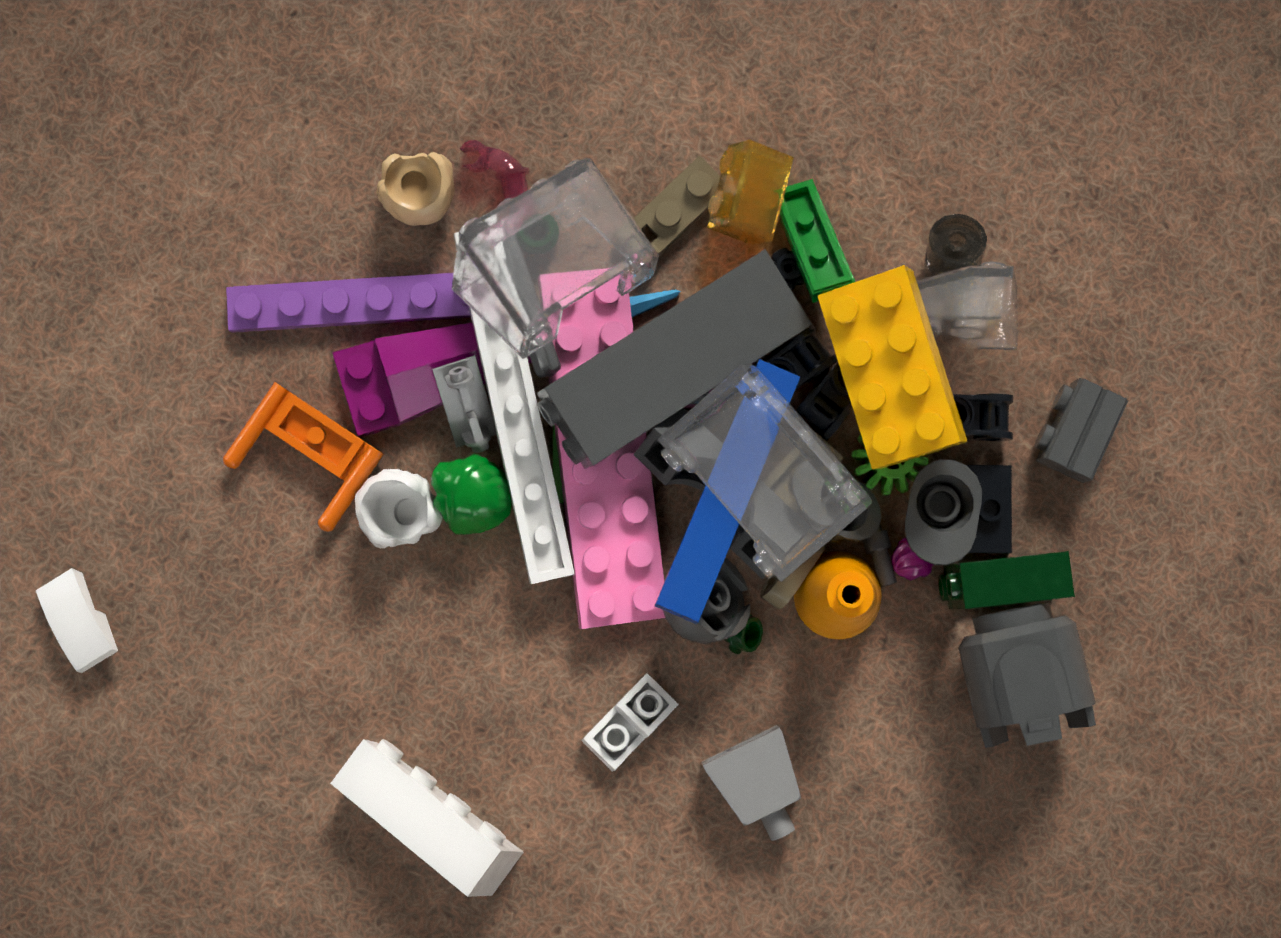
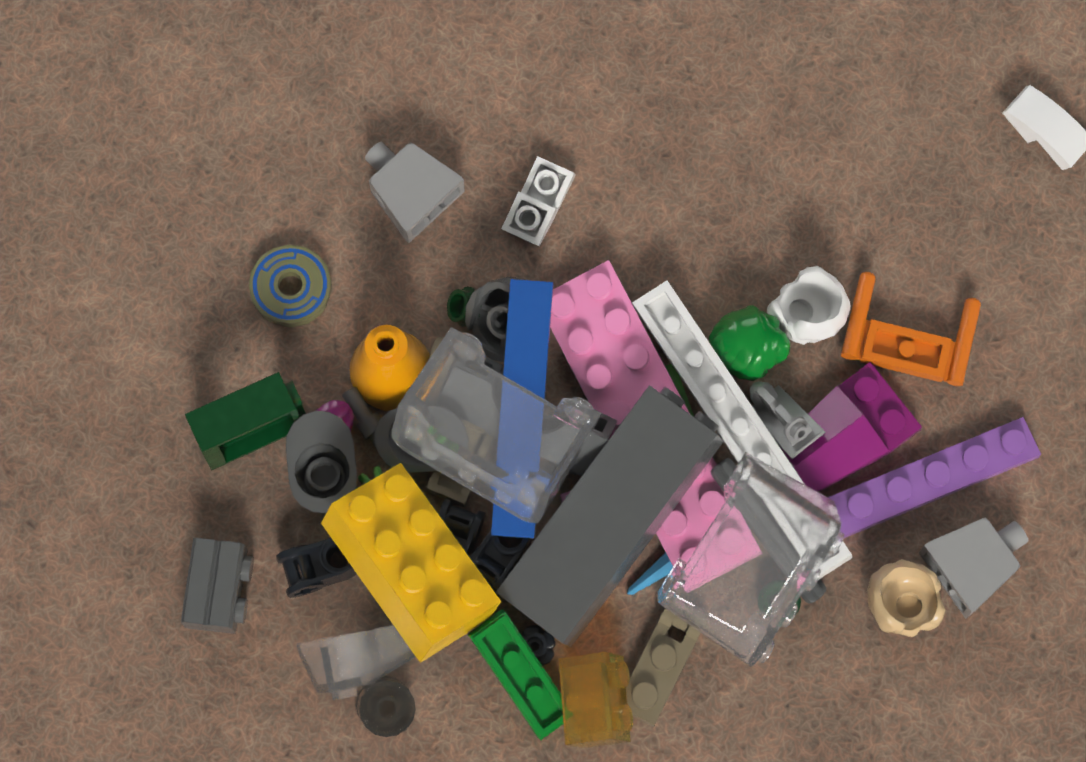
camera: 165 degrees right, 10 degrees down
(333, 202) = (974, 561): none -> light grey torso
(426, 819) = (683, 62): white wedge -> none
(507, 167) = (825, 647): clear pink piece -> none
(938, 724) = (286, 262): none -> olive tile
(995, 515) = (273, 489): black plate -> none
(1026, 672) = (204, 339): dark grey piece -> none

